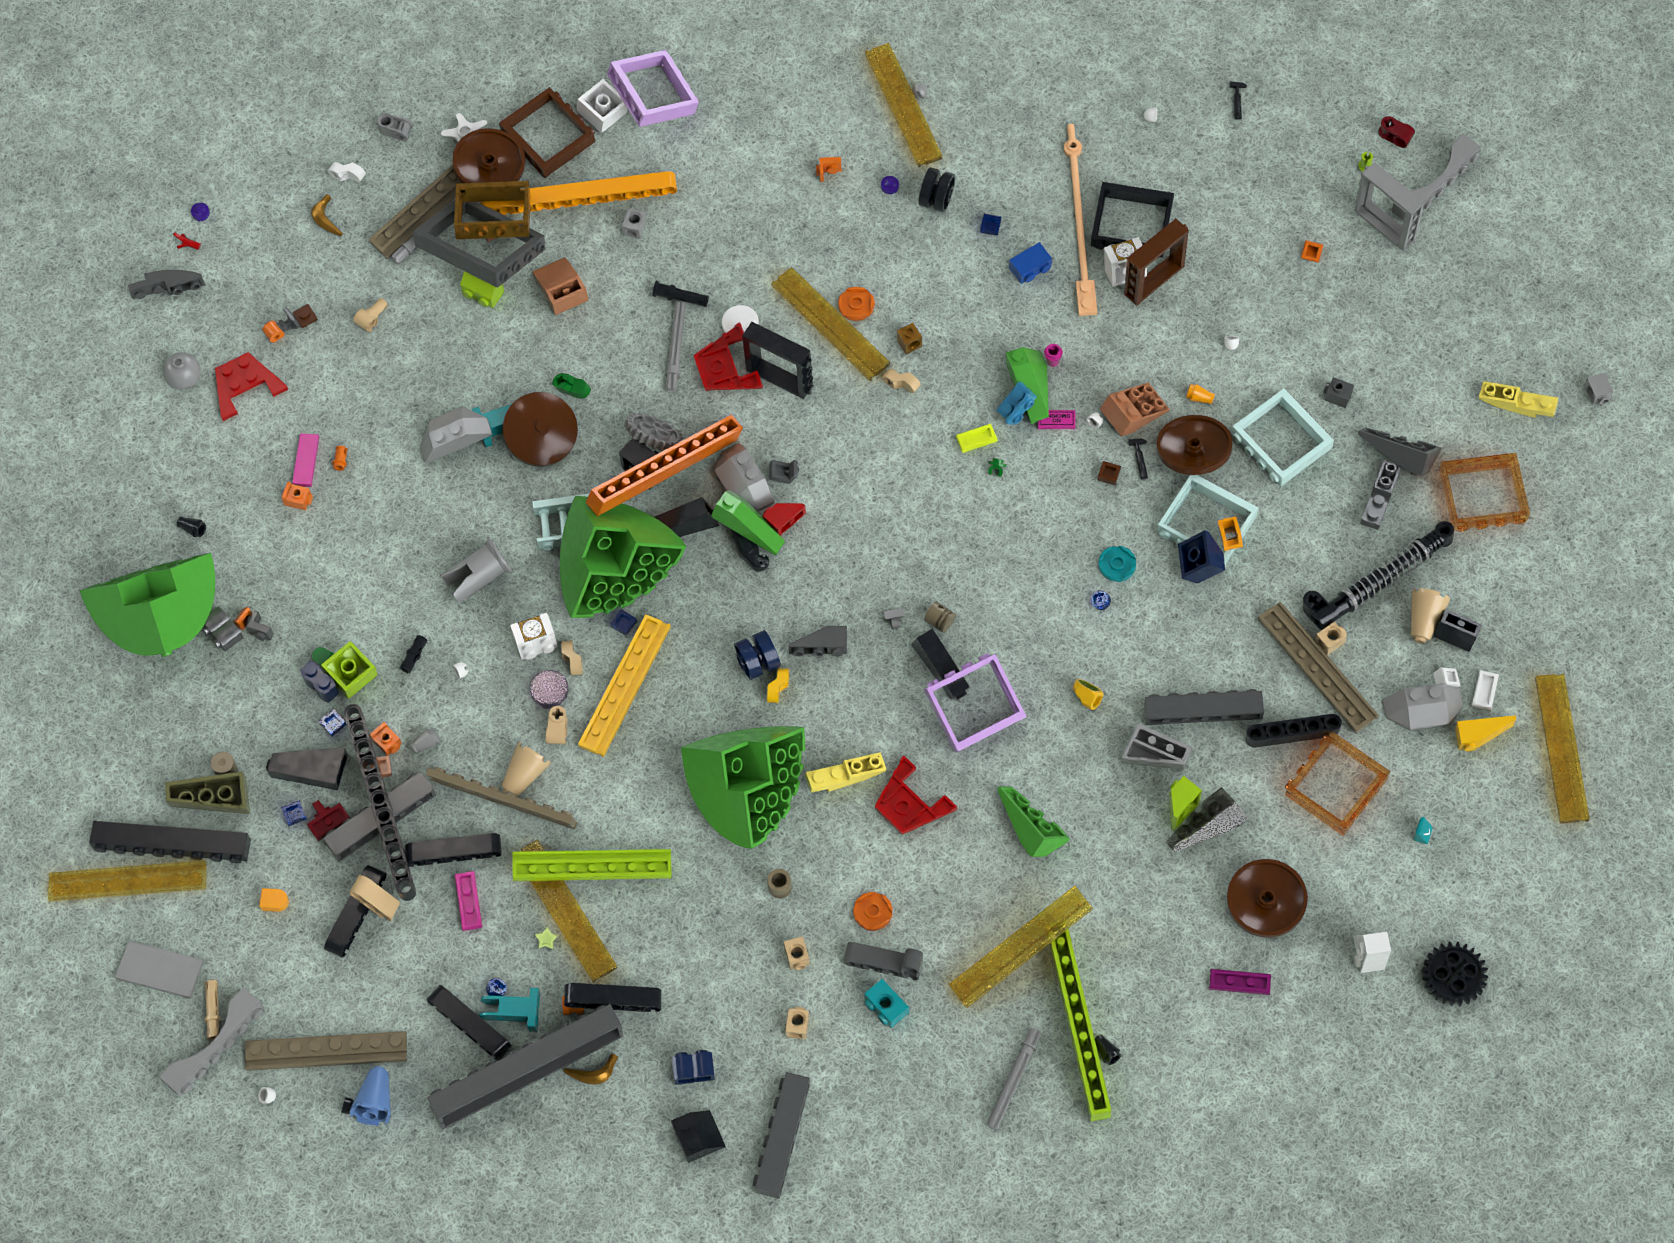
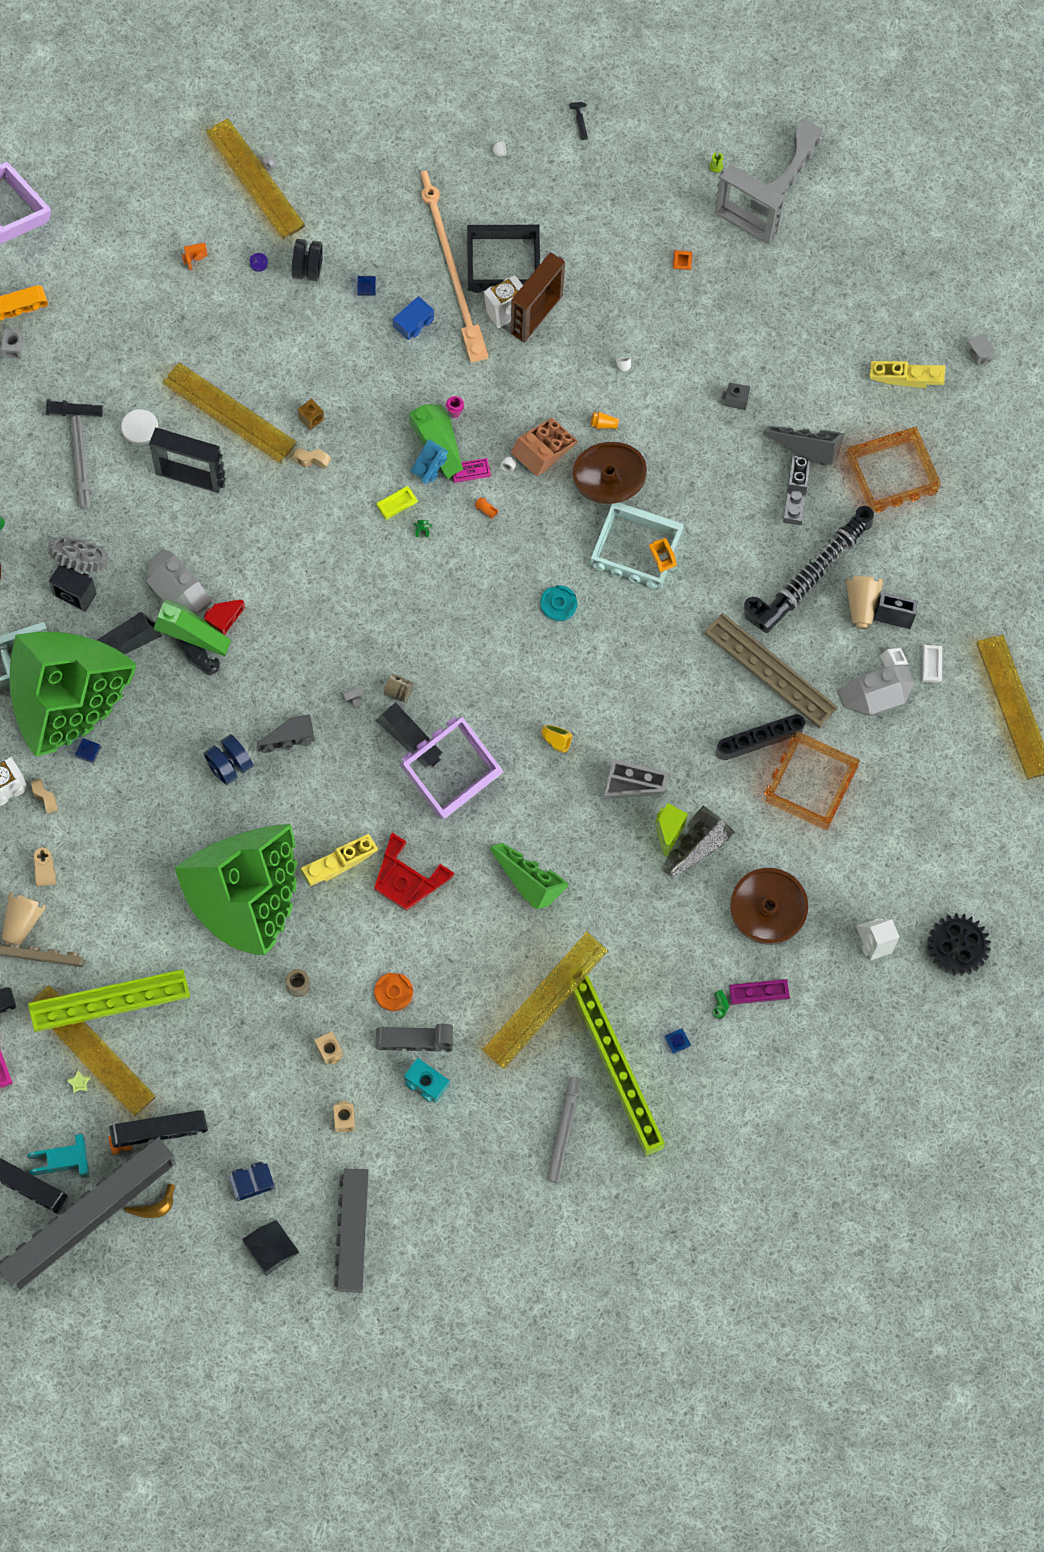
camera: 20 degrees left, 5 degrees up
(496, 987) = (40, 1141): clear blue tile -> none
(549, 688) = (28, 831): clear purple tile -> none
(624, 685) = (102, 814): yellow plate -> none
(664, 465) = (97, 587): orange brick -> none
(718, 368) = (127, 475): red wing -> none
(778, 685) = (254, 785): yellow piece -> none
(783, 471) = (214, 570): dark grey bracket -> none
(856, 303) = (245, 389): orange tile -> none
(1061, 454) = (486, 507): none -> orange pin
(1100, 600) = (550, 642): clear blue tile -> none
(1108, 1052) = (648, 1084): black cone -> none
(1109, 473) = (532, 514): reddish brown plate -> none
(1139, 456) = (558, 493): black piece -> none
(1147, 1014) = (677, 1041): none -> clear blue plate
(1200, 558) = (638, 584): dark blue slope -> none
(1200, 987) = (722, 1005): none -> green arm
(1204, 707) = (671, 730): dark grey brick -> none
(1302, 417) = (707, 428): light aqua window -> none
(1327, 644) = (775, 646): tan brick -> none
(1397, 132) = (740, 128): dark red piece -> none
(1423, 831) = (901, 812): teal slope -> none
(1477, 732) = (933, 706): yellow slope -> none

